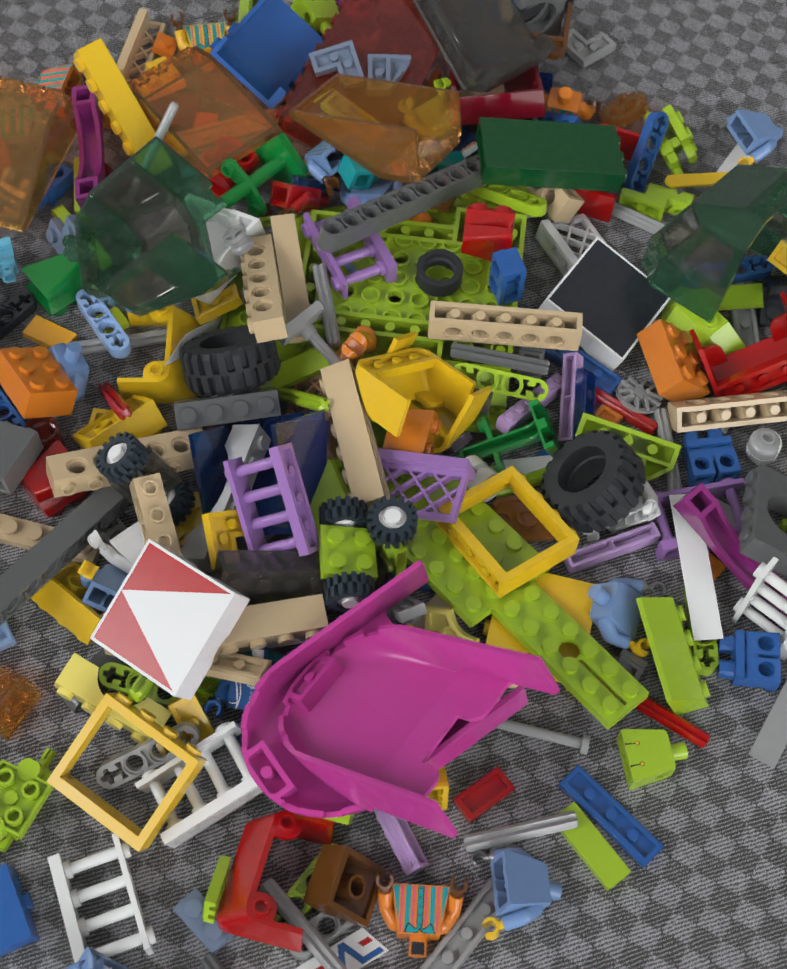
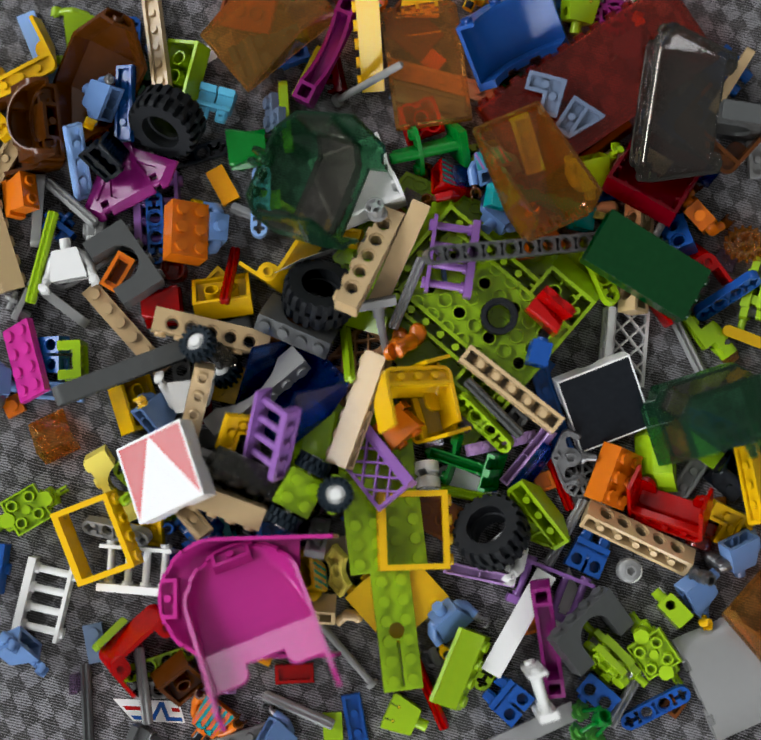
camera: 35 degrees right, 25 degrees up
(610, 369) = (565, 456): none -> flat silver piece

